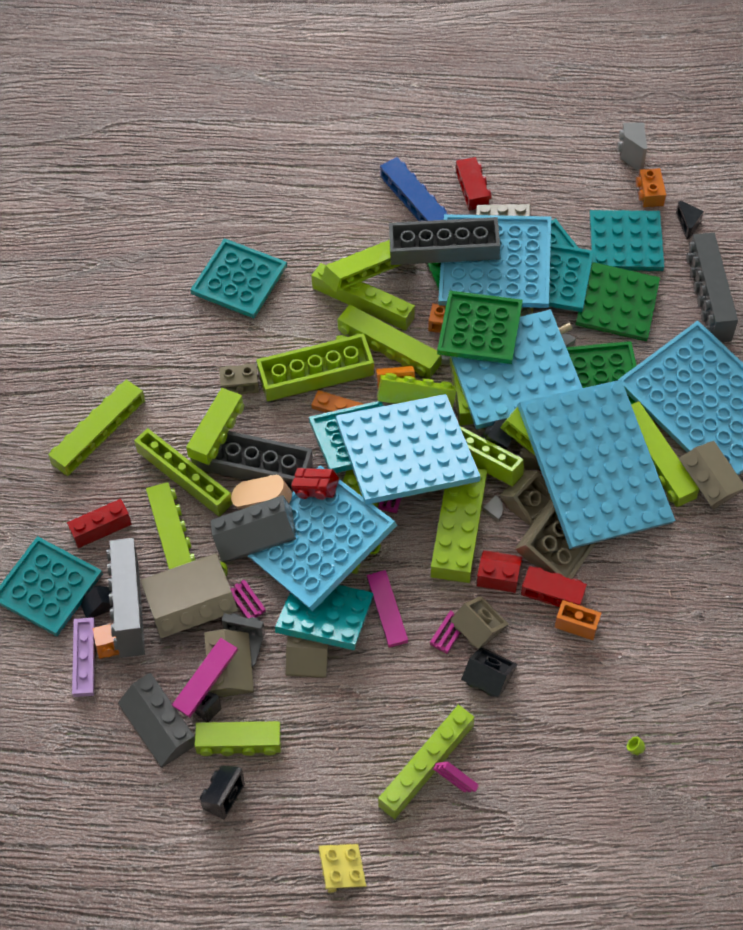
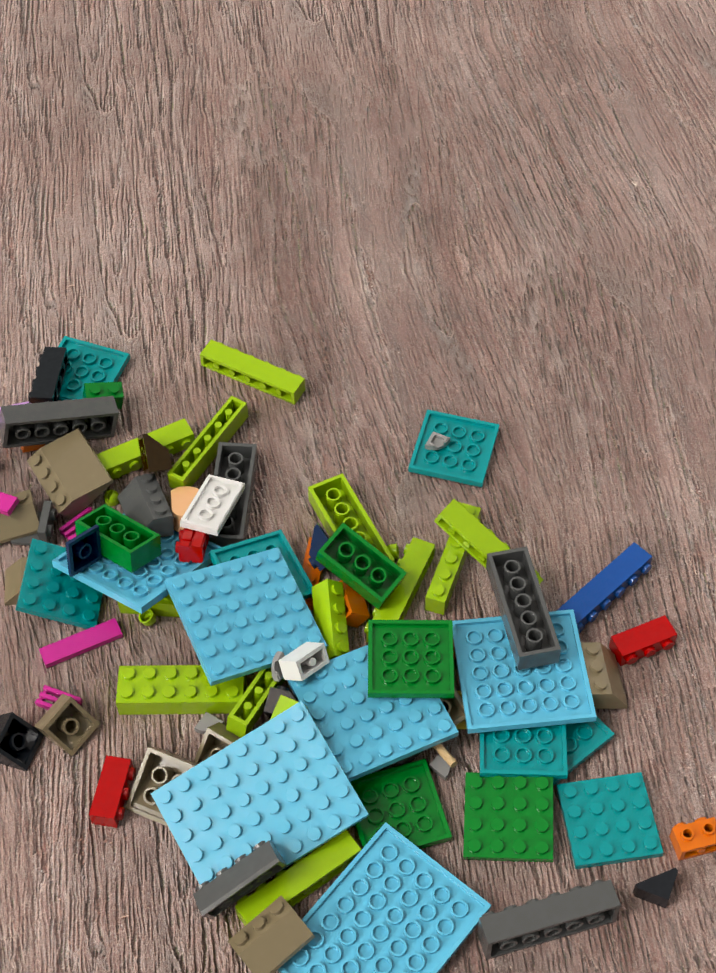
camera: 80 degrees right, 5 degrees down
(58, 607) = (49, 375): none -> black brick
(96, 559) = (105, 389): none -> green brick
(99, 523) = (147, 394): red brick -> none
(196, 514) = (154, 455): none -> dark brown slope
(215, 426) = (250, 450): lime brick -> none
(232, 286) = (437, 441): none -> light grey tile
(240, 378) = (325, 464): dark tan brick -> none
(275, 462) = (212, 505): none -> white tile
(300, 542) = (122, 538): none -> green brick
(310, 571) = (83, 550): none -> dark blue slope
(336, 387) = (318, 540): none -> dark blue slope
(374, 351) = (360, 565): none -> green brick
(467, 427) = (275, 668): none -> light grey tile
(469, 405) = (304, 661): none -> white brick
(499, 571) = (131, 734): red slope -> none
(577, 620) = (72, 816): orange brick -> none
(666, 483) = (238, 880): none -> dark grey slope

